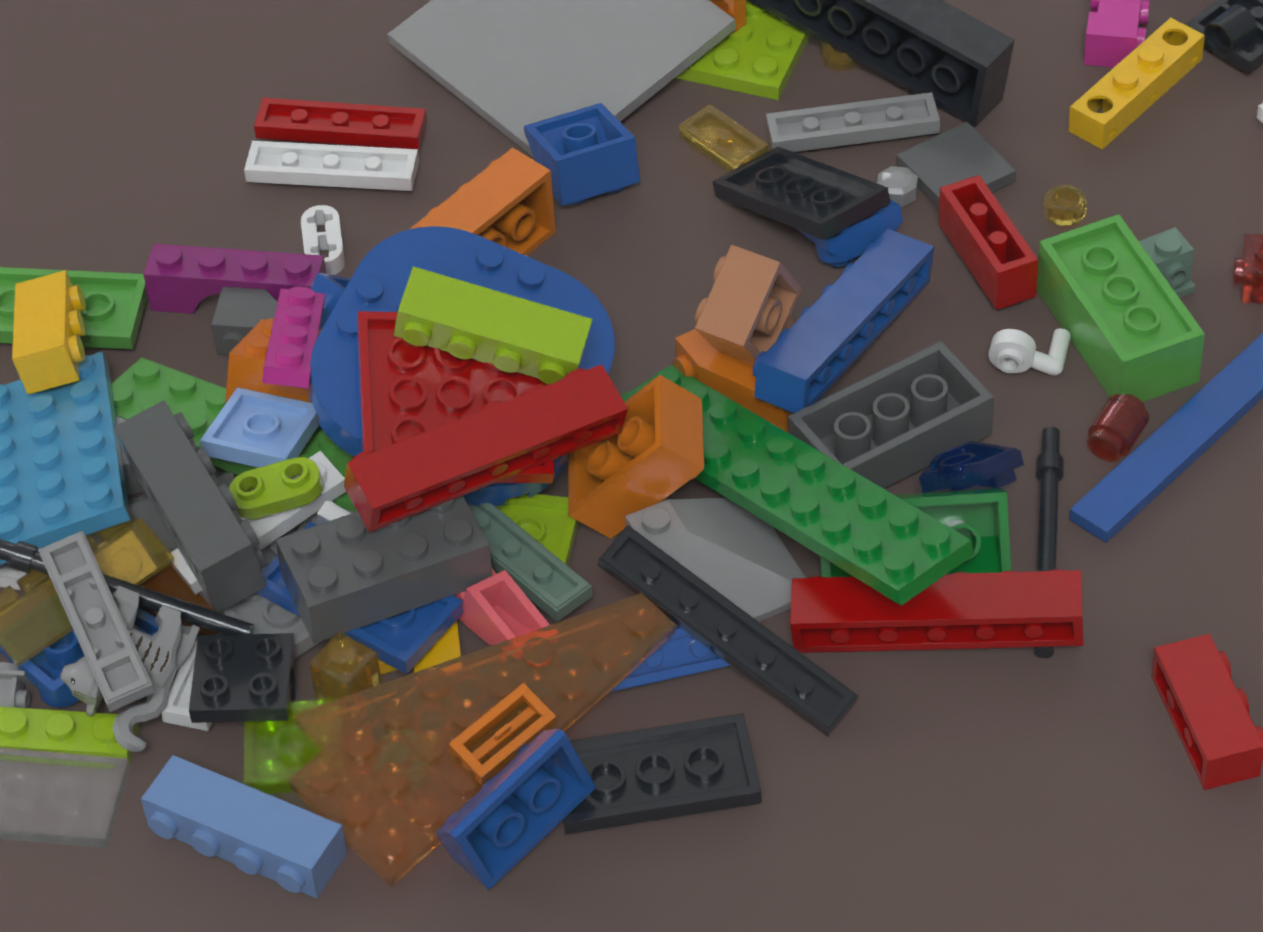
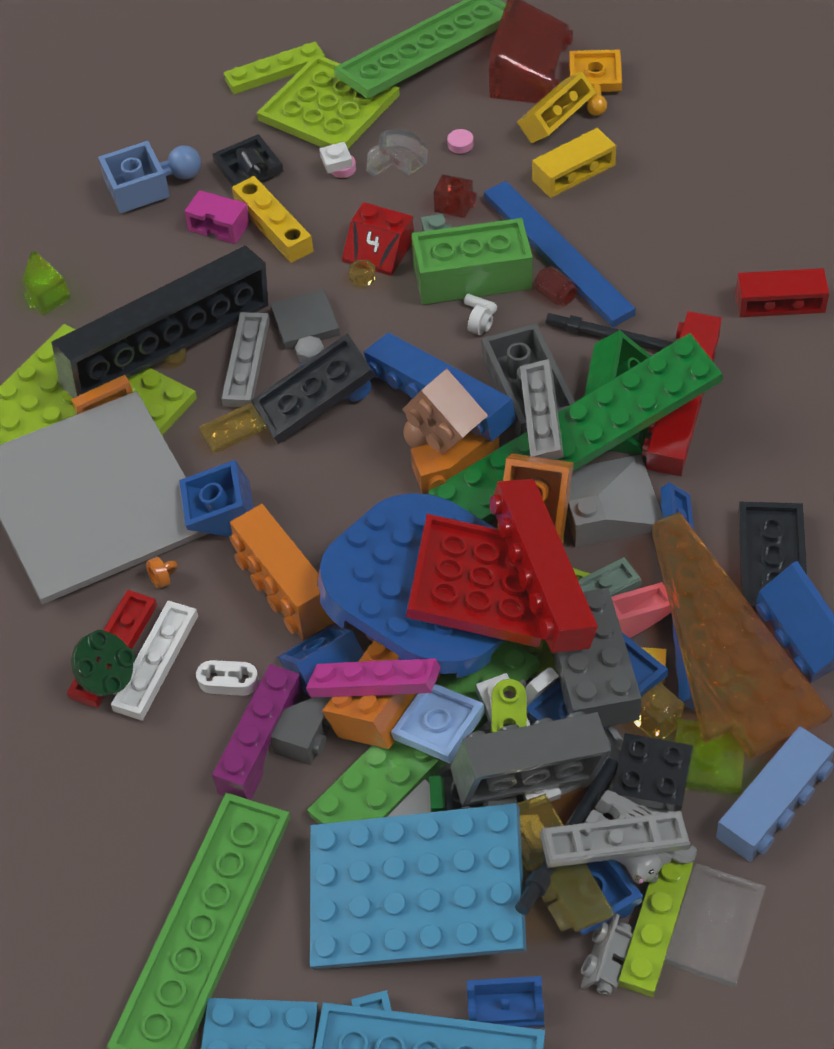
camera: 75 degrees left, 5 degrees up
(48, 331) = (289, 853): yellow brick -> none
(268, 103) = (109, 651): none -> dark green plate
(463, 132) = (160, 571): none -> orange tile
(471, 761) = (745, 619): orange tile -> none
(491, 326) = (445, 535): lime brick -> none
(728, 631) = (680, 492): black tile -> none
(799, 421) = (541, 410): none -> light grey plate
(972, 465) = (577, 351): clear blue plate -> none
(988, 242) = (390, 308): red brick -> none
(1141, 191) = (379, 237): none -> red slope

